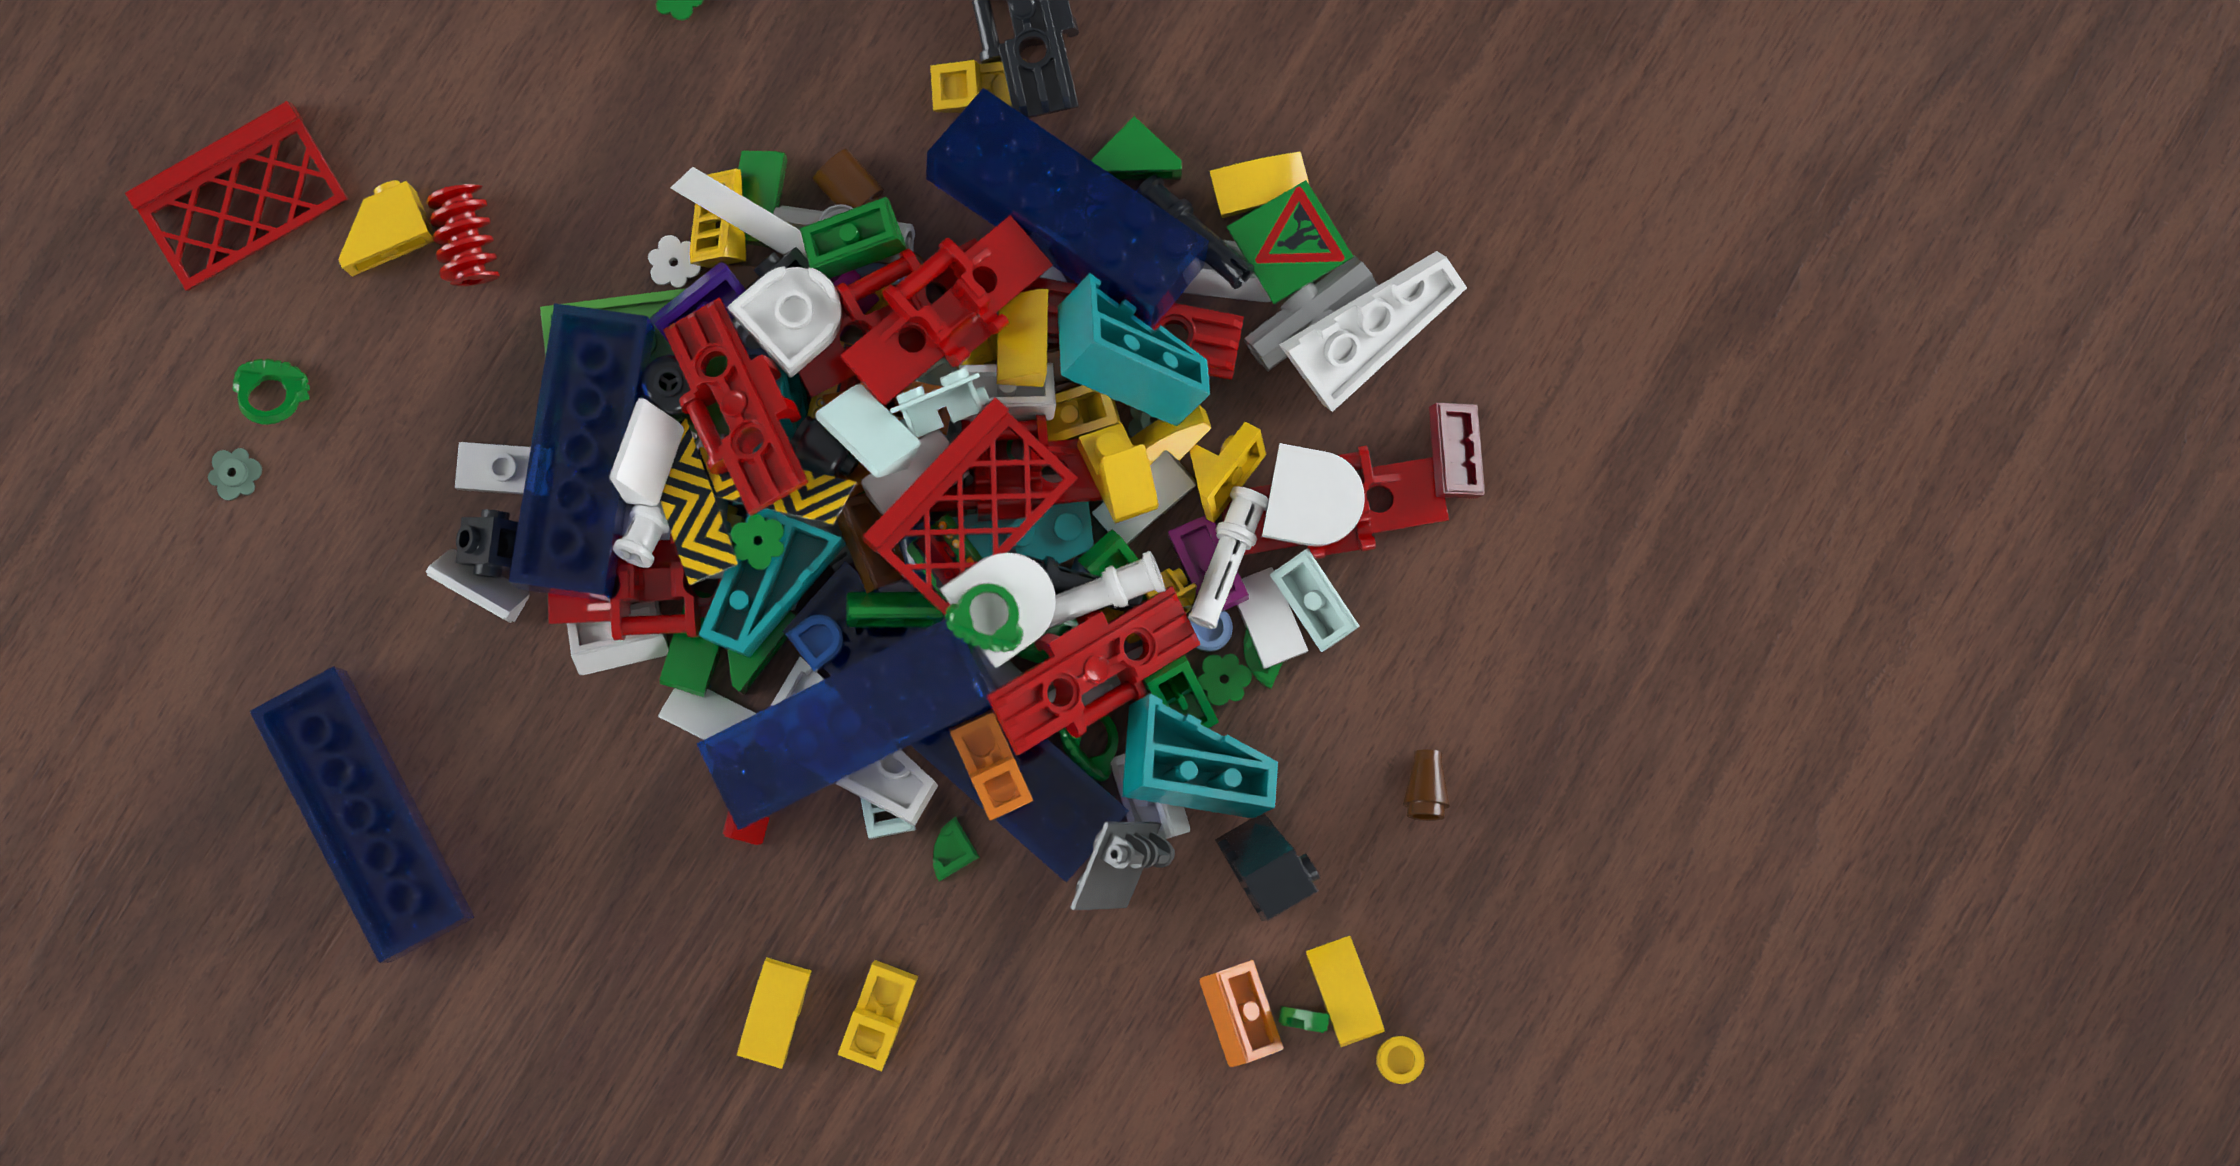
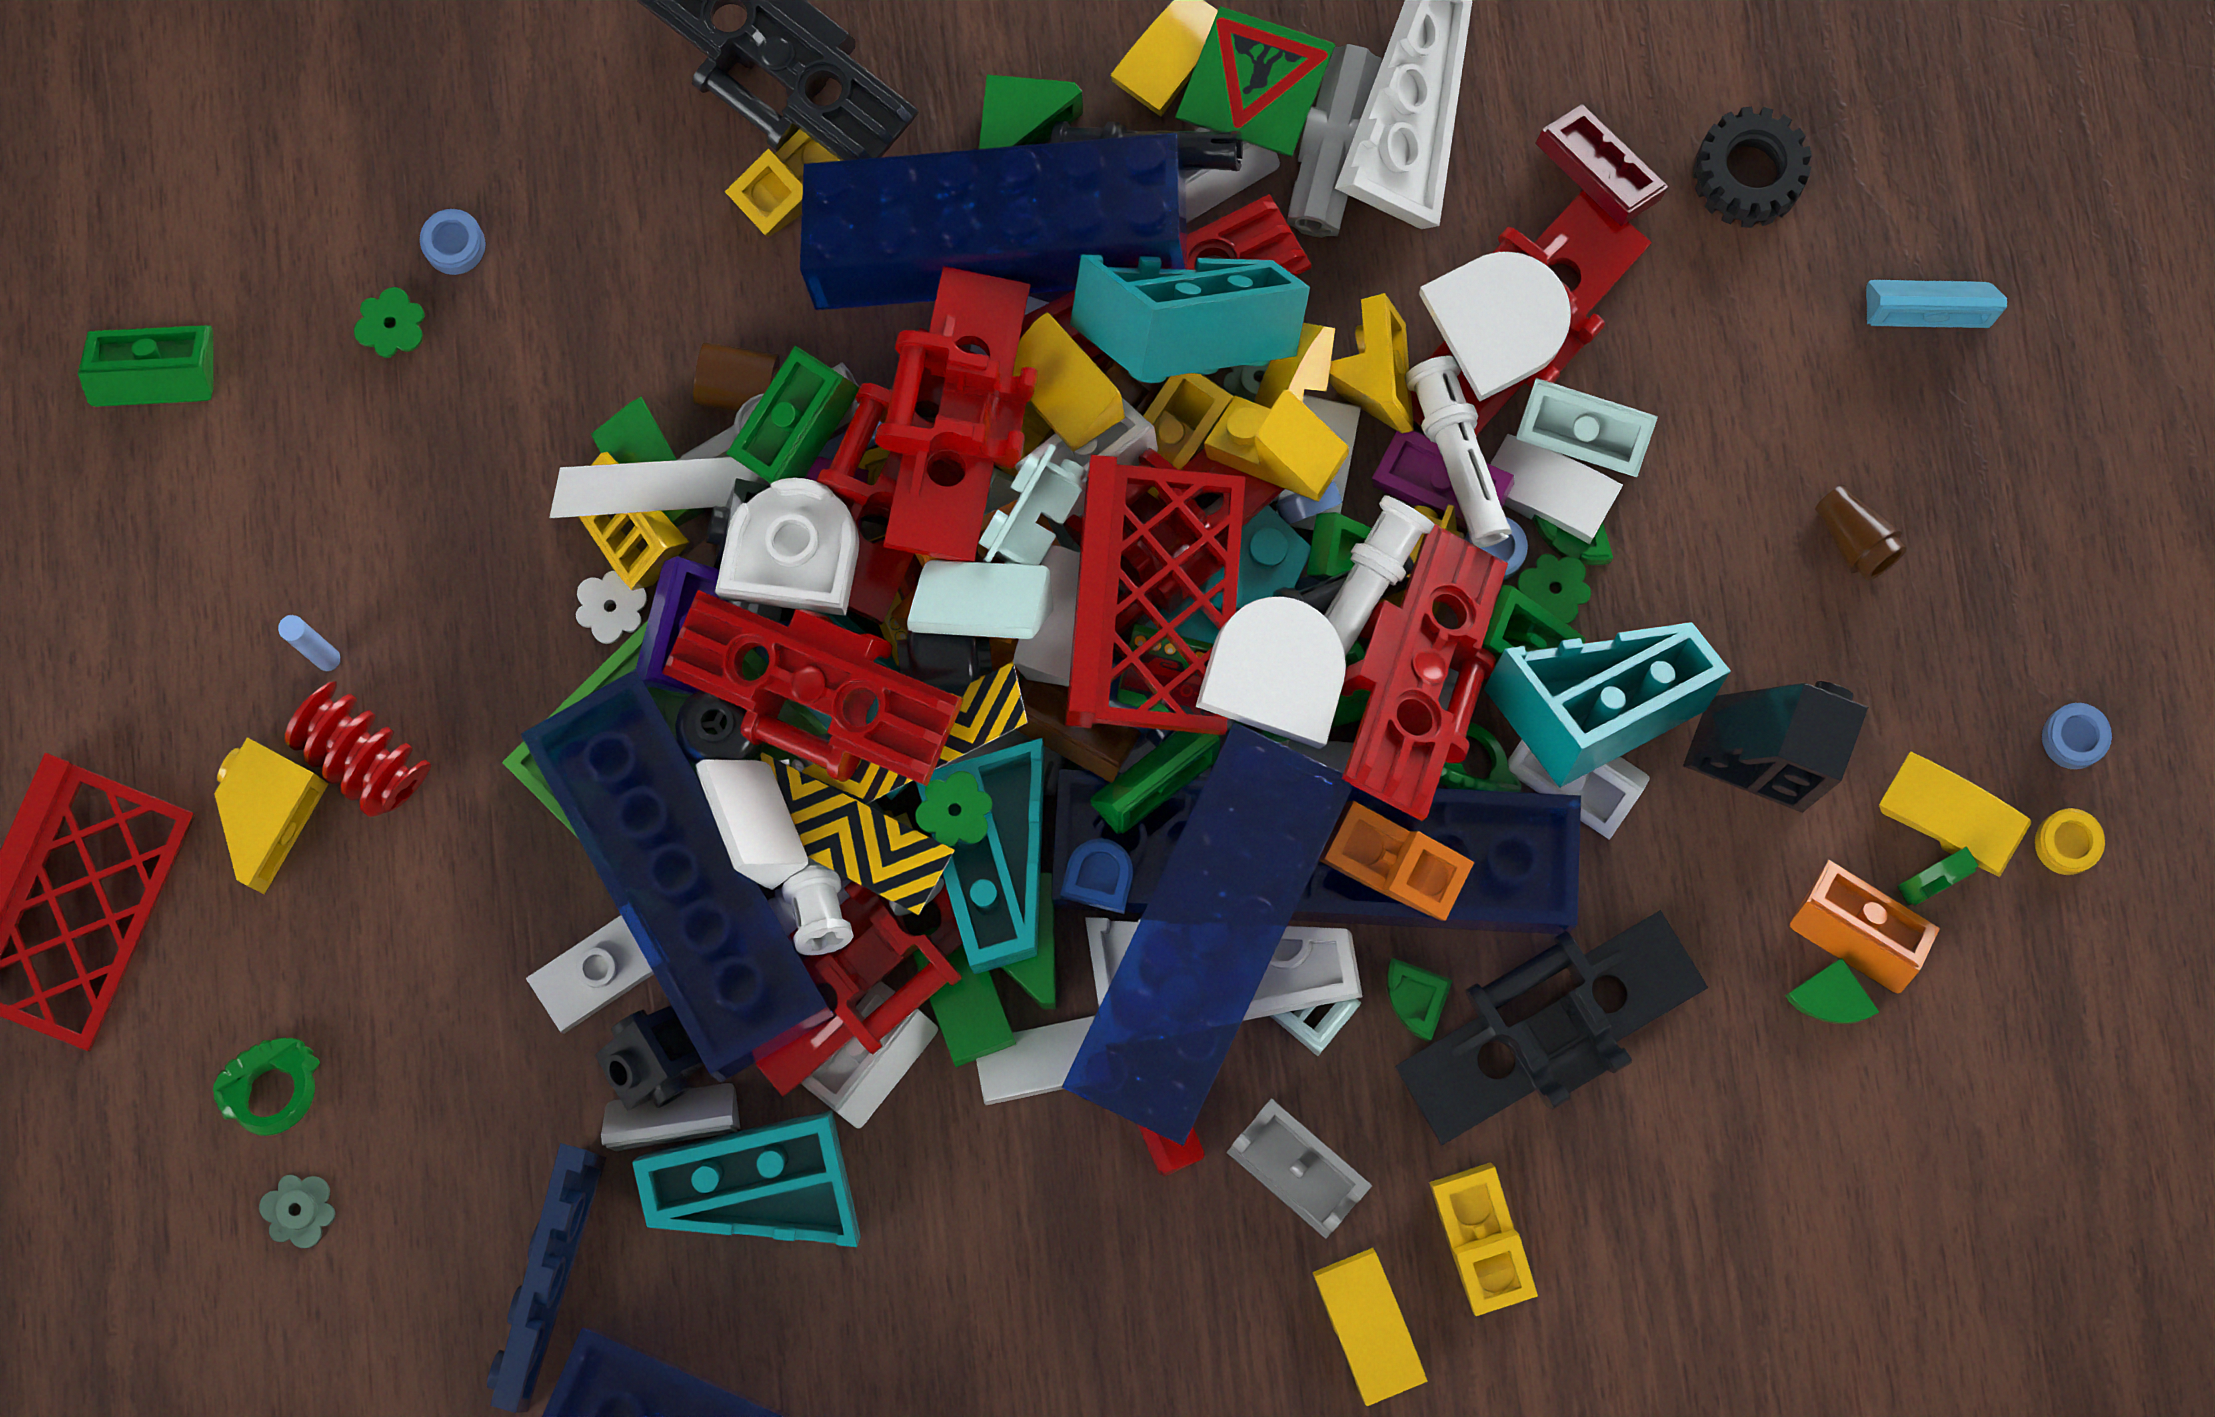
camera: 35 degrees left, 5 degrees down
(340, 620) = (546, 1277): none -> dark blue wing
(481, 153) = (309, 643): none -> light blue piece
(494, 659) = (757, 1182): none -> teal wedge
(806, 893) = (1299, 1168): none -> light grey hinge
(961, 623) = (1249, 717): green piece -> none
(1011, 941) = (1562, 1042): none -> black piece
(1103, 518) = (1298, 507): none -> medium blue tile
(1117, 863) = (1607, 845): dark grey hinge -> none
(1189, 1038) = (1833, 996): none -> green tile
(1456, 1003) = (2076, 736): none -> medium blue tile
(1564, 499) = (1767, 135): none -> black tyre
(1586, 685) = (1933, 303): none -> medium azure slope

